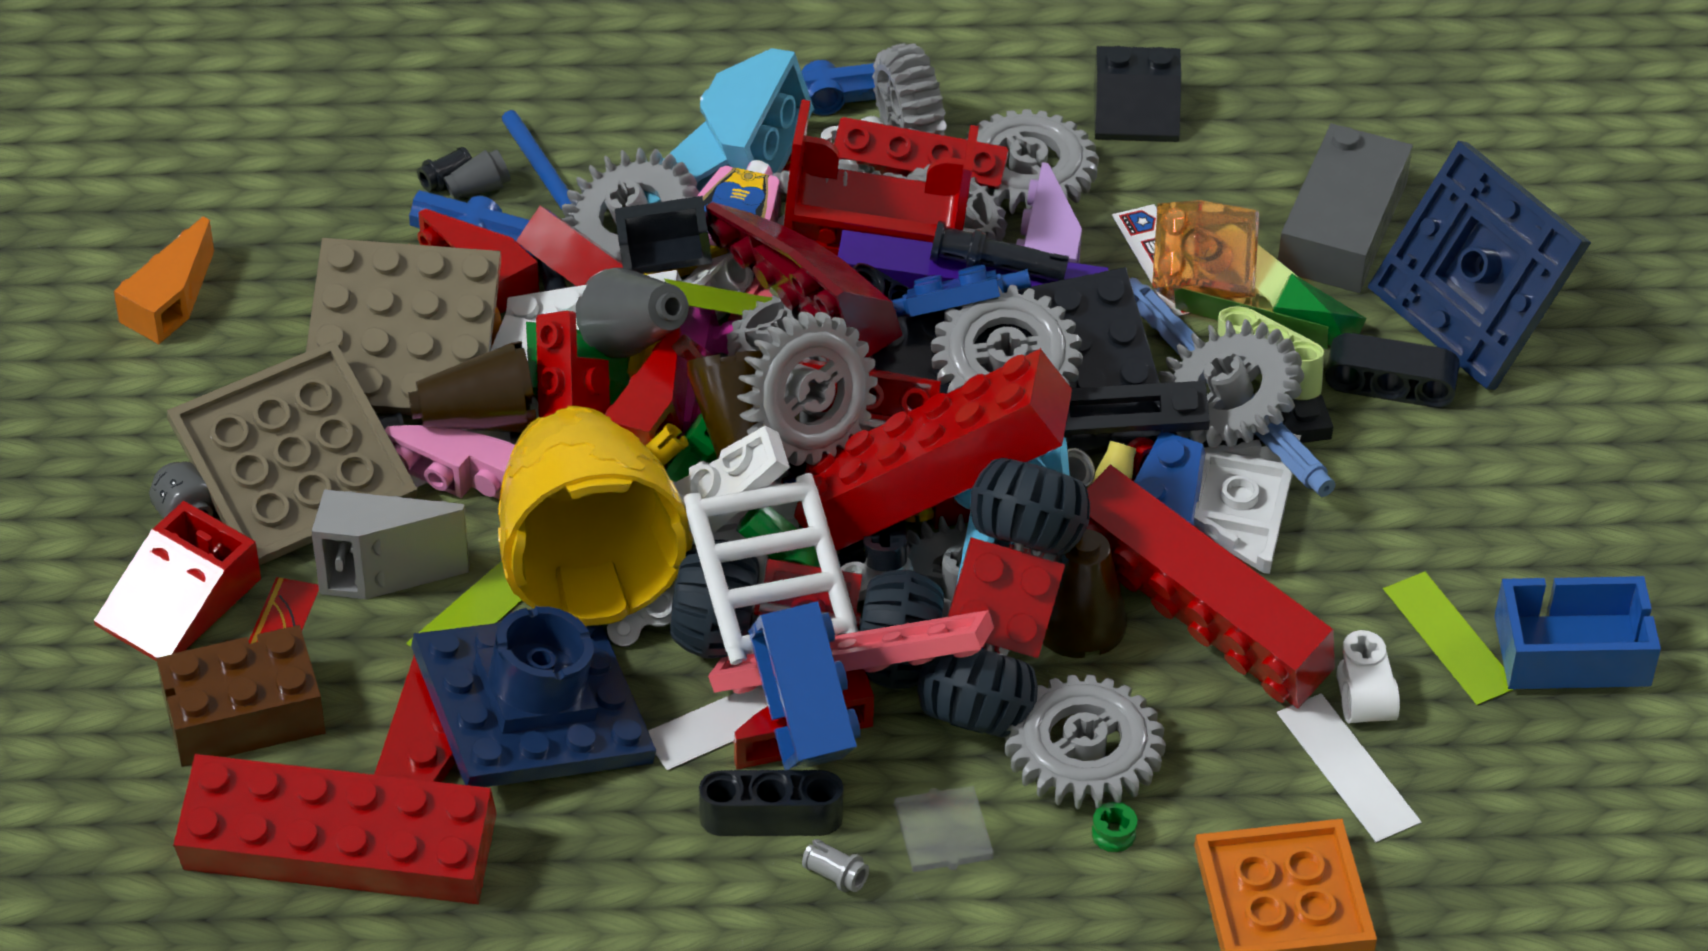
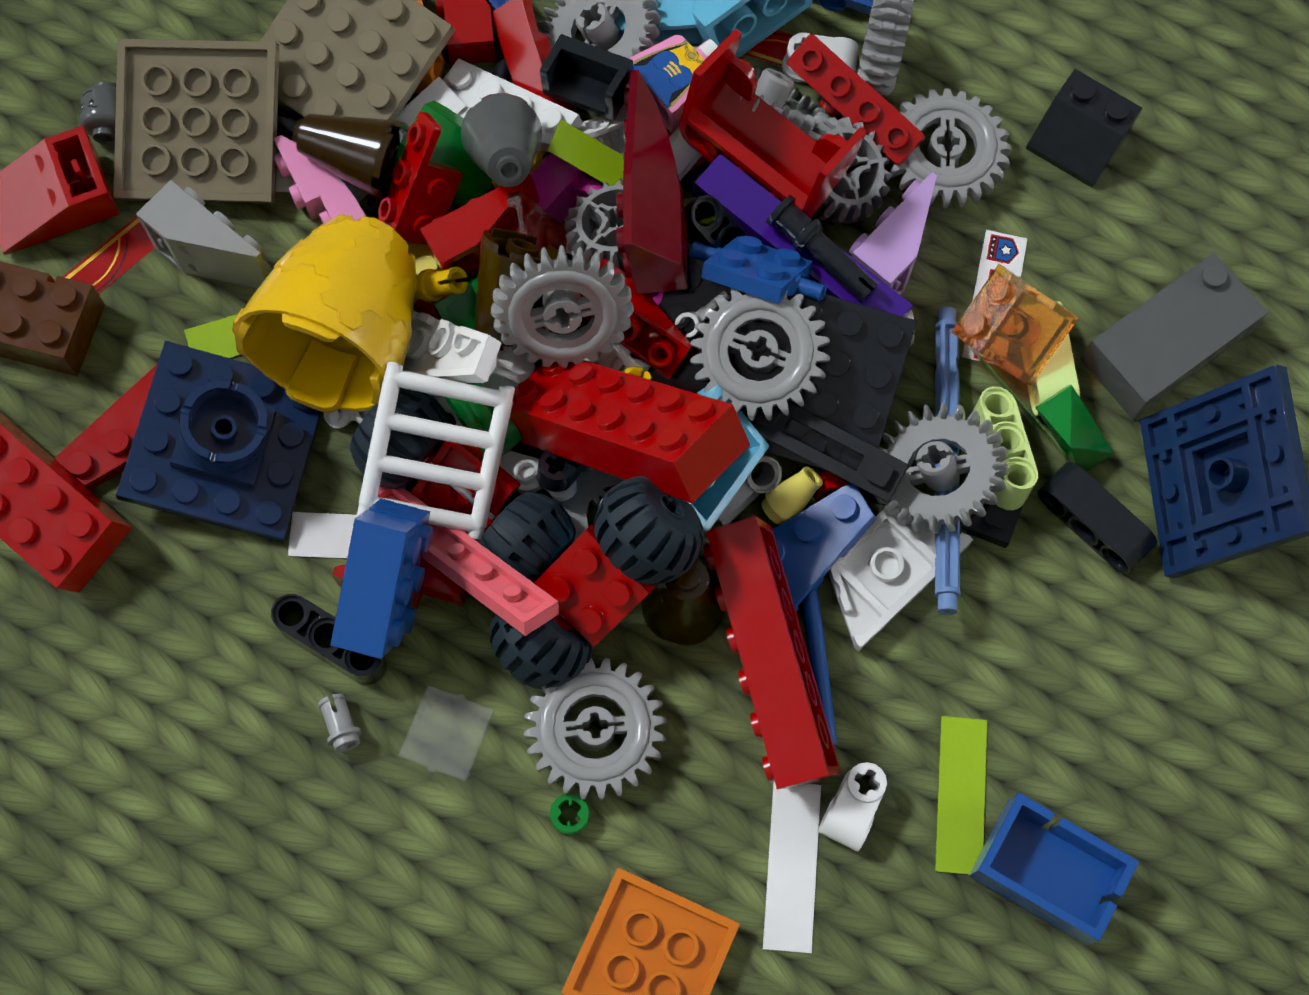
camera: 30 degrees right, 25 degrees up
(924, 358) = (699, 316): none -> white hand

